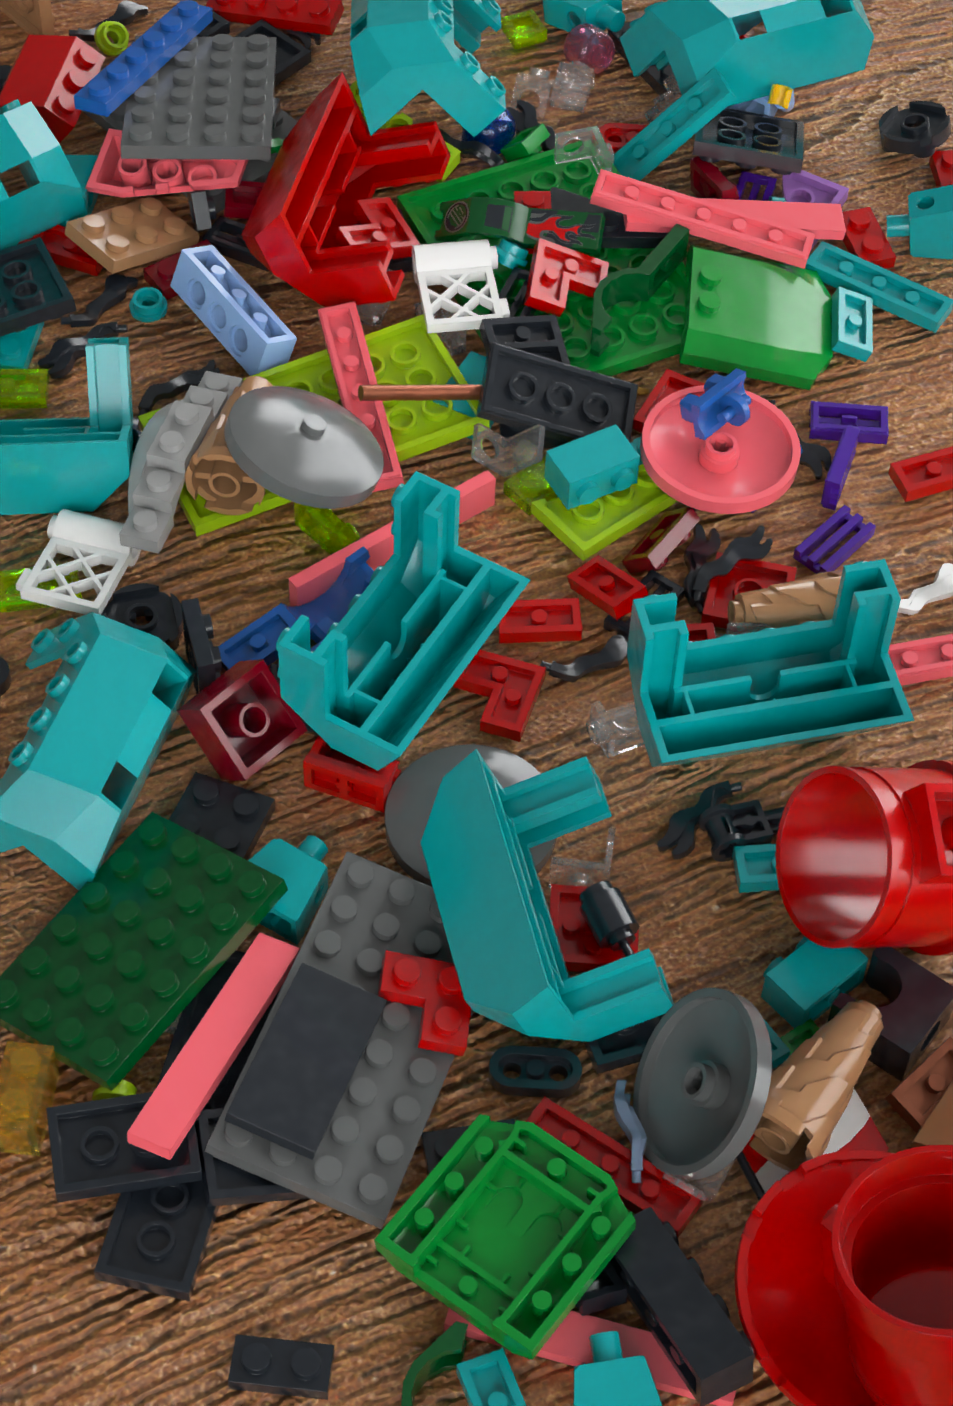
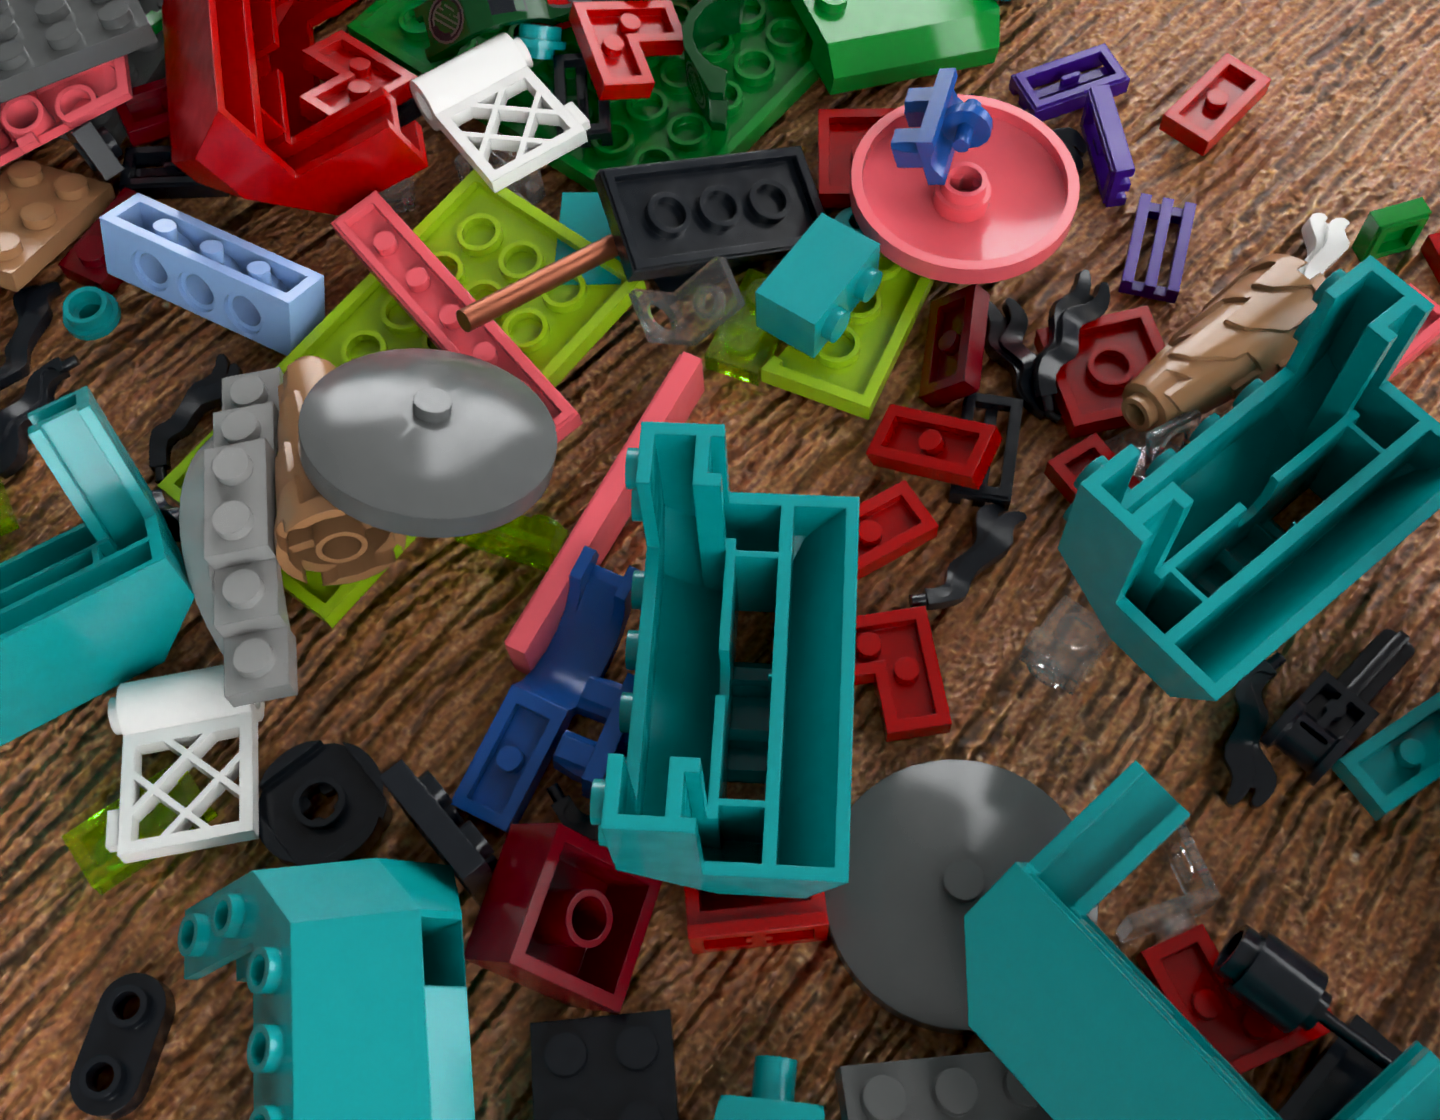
camera: 20 degrees left, 10 degrees up
(528, 333) = (625, 139): black wing -> none

